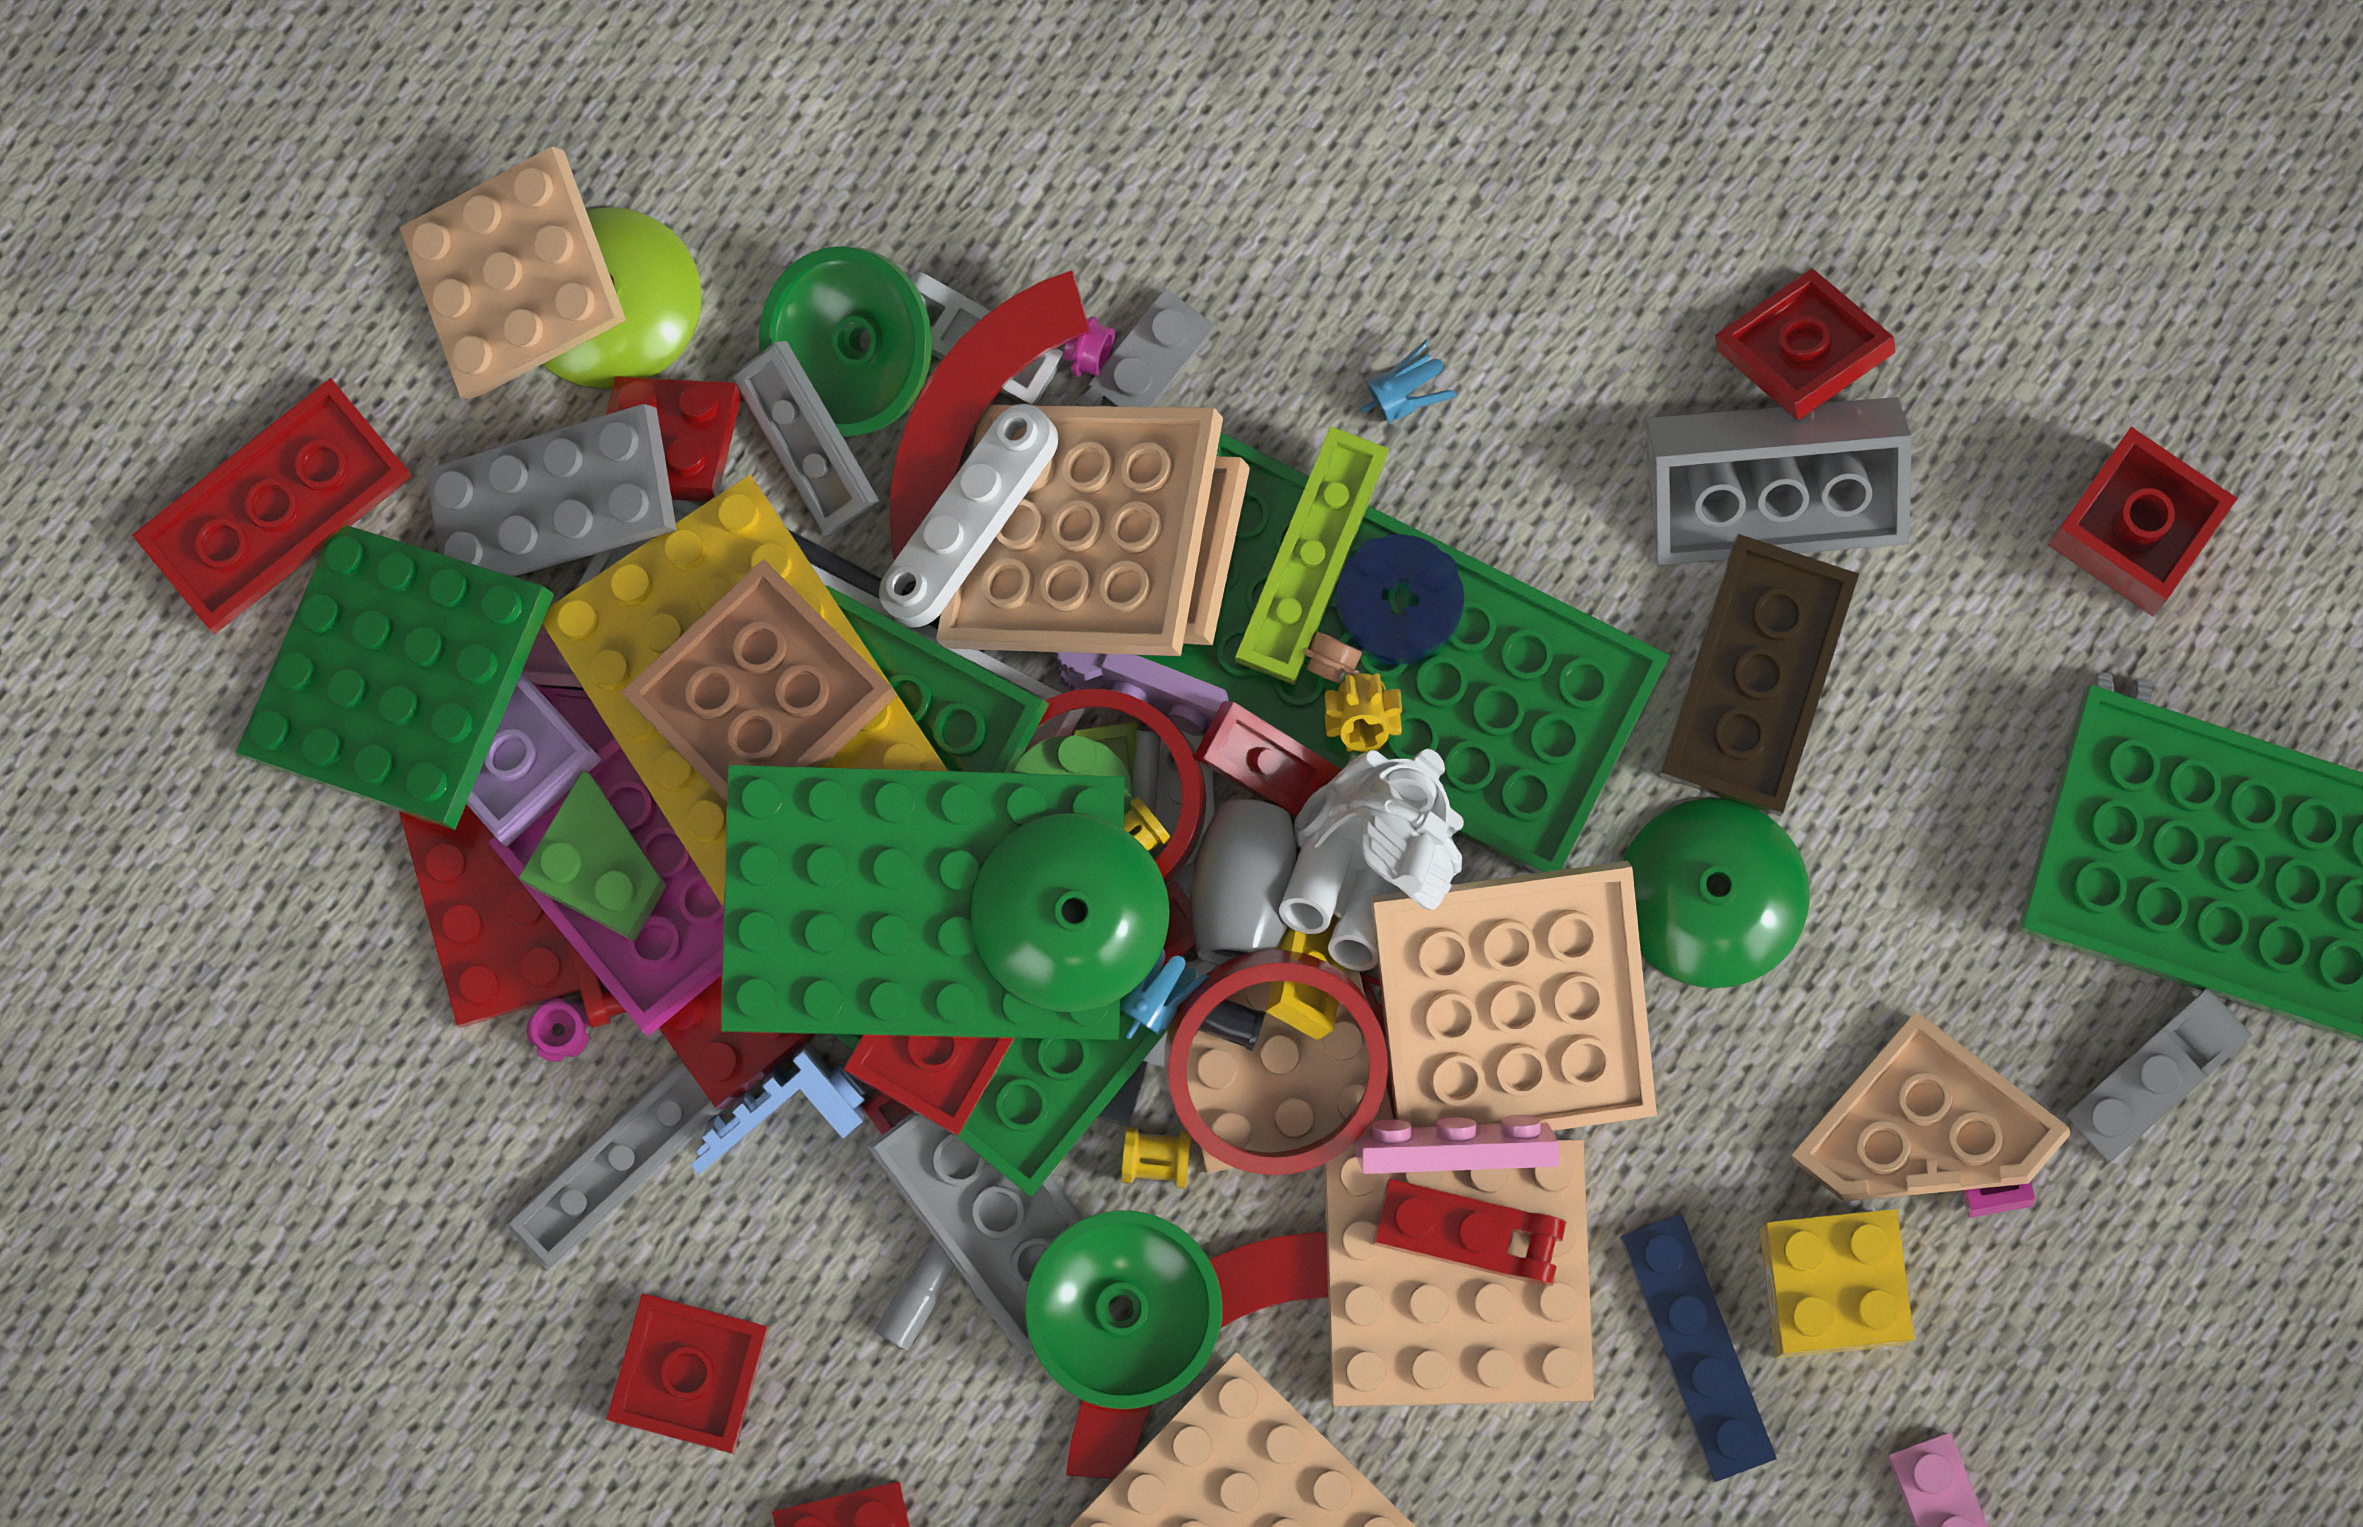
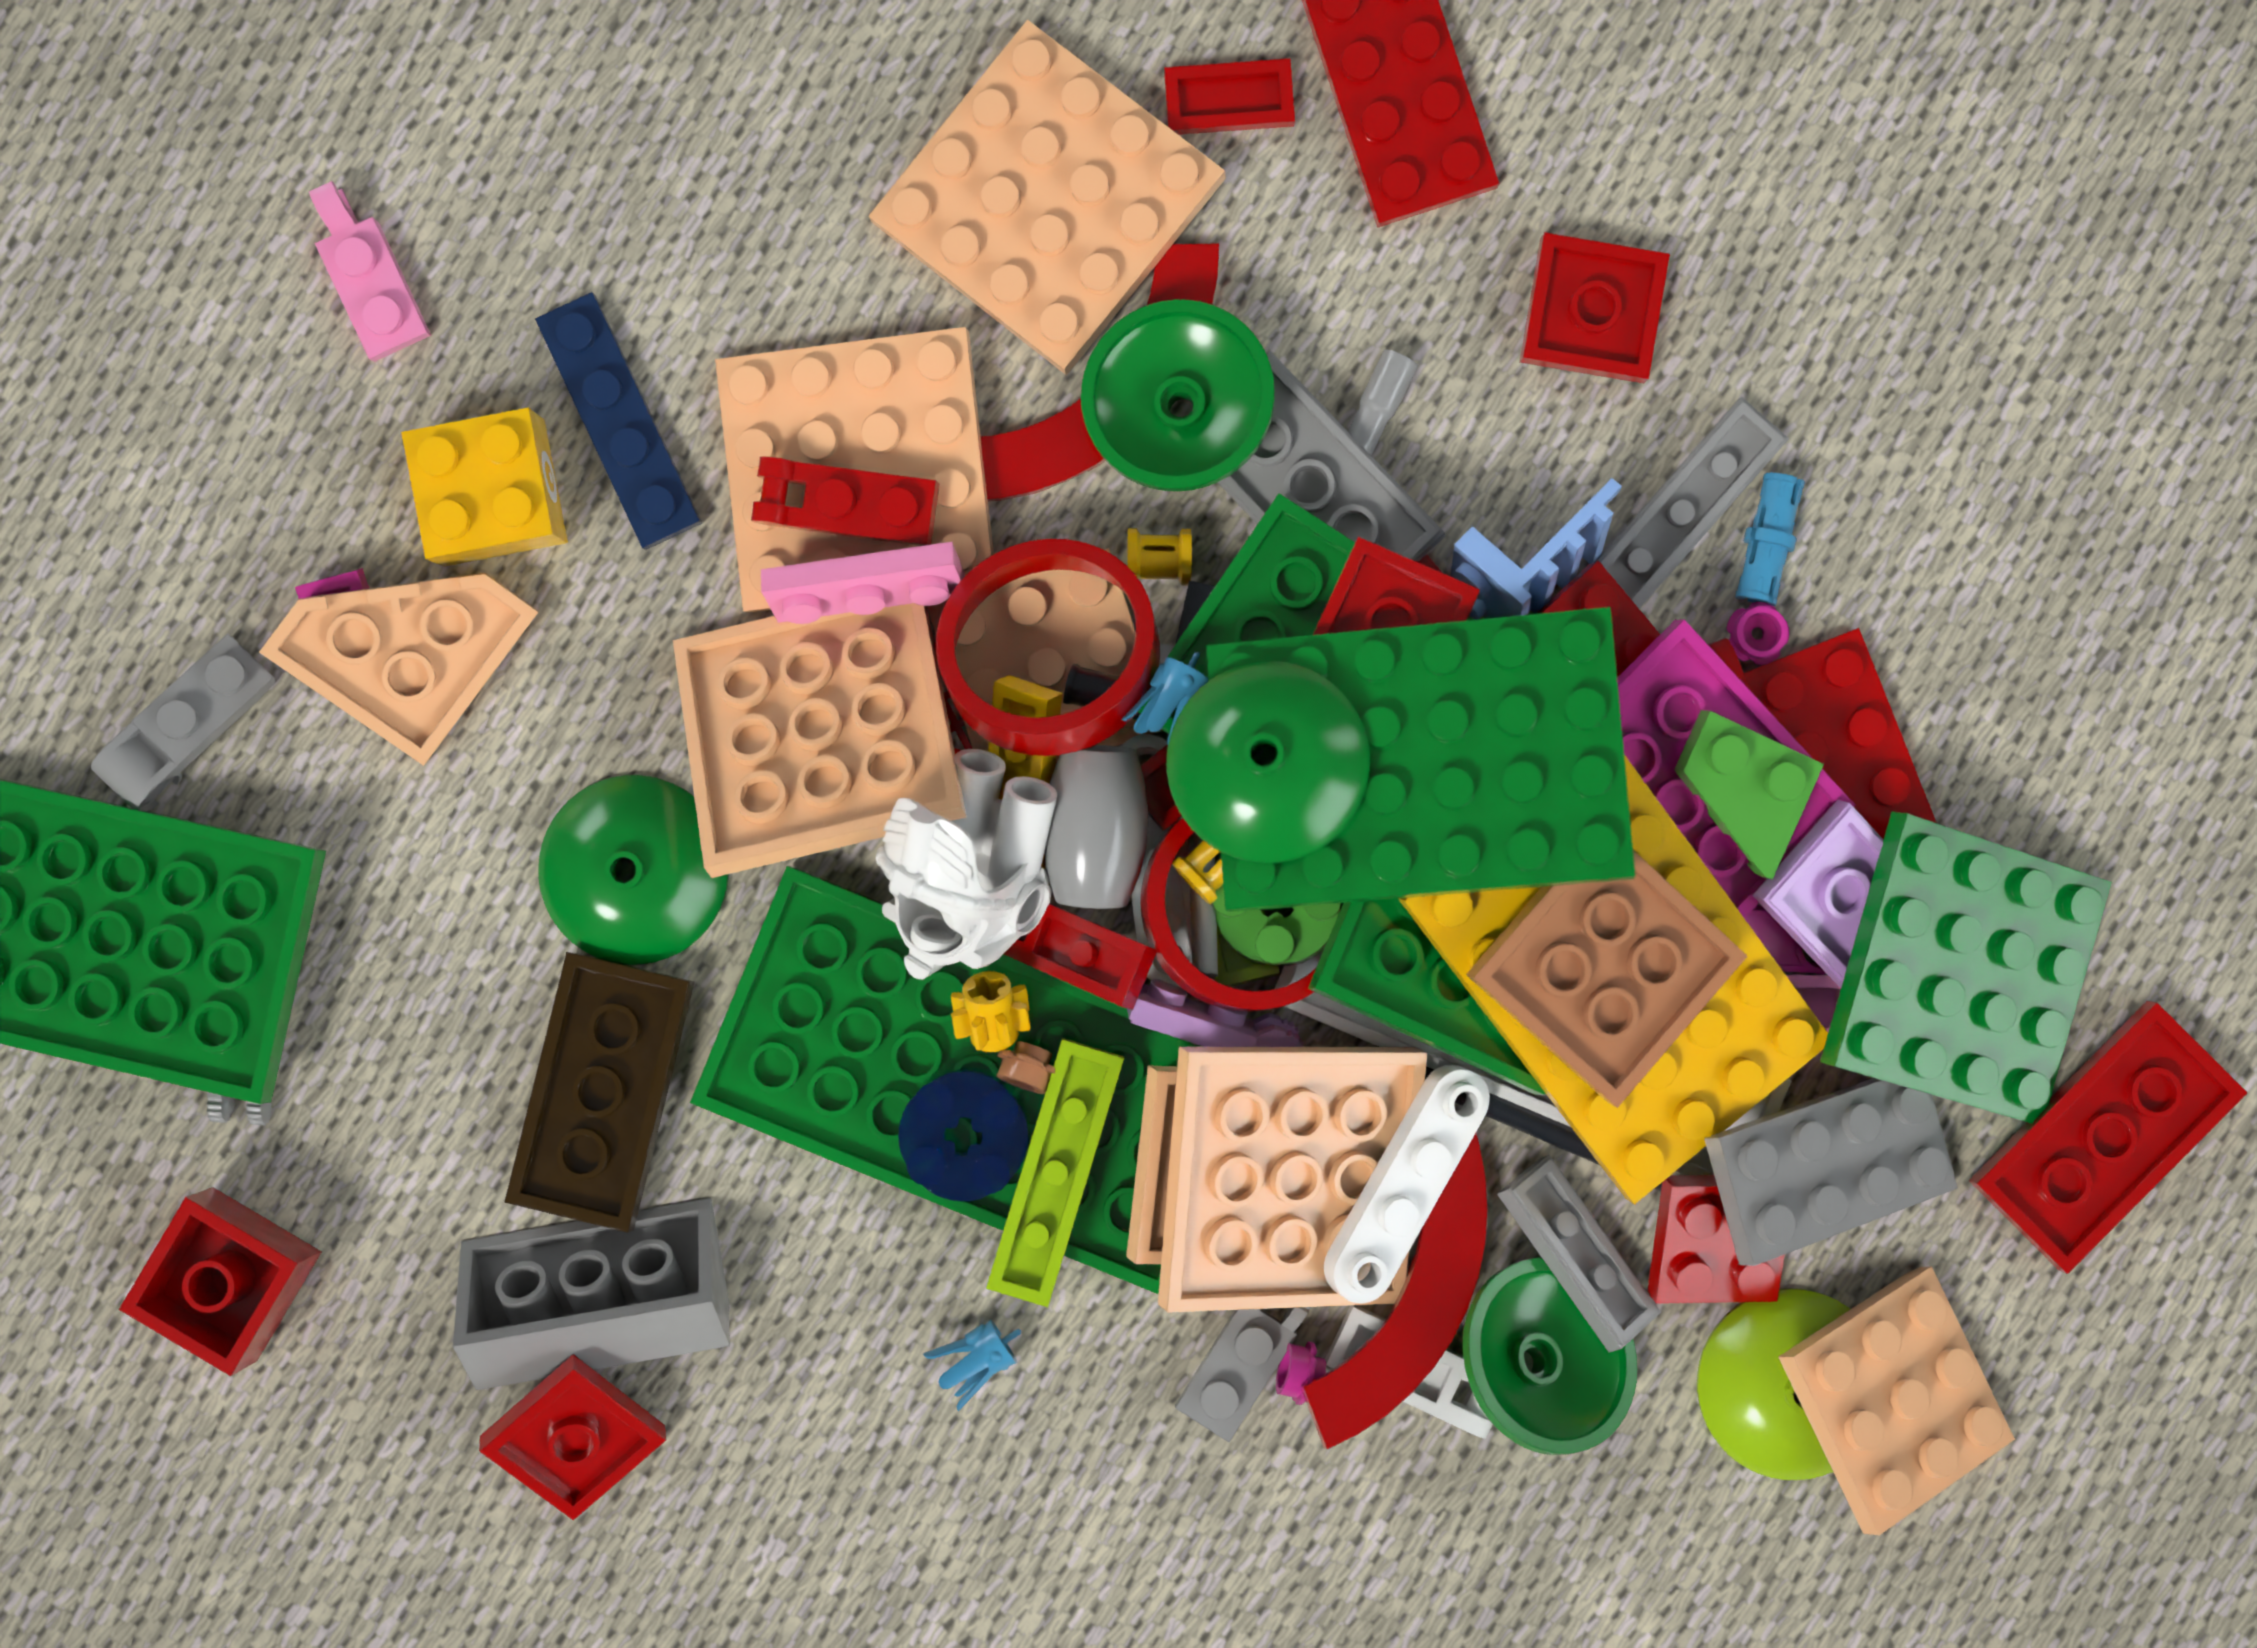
camera: 175 degrees right, 10 degrees up
(535, 1122) = (1770, 538): none -> dark azure pin

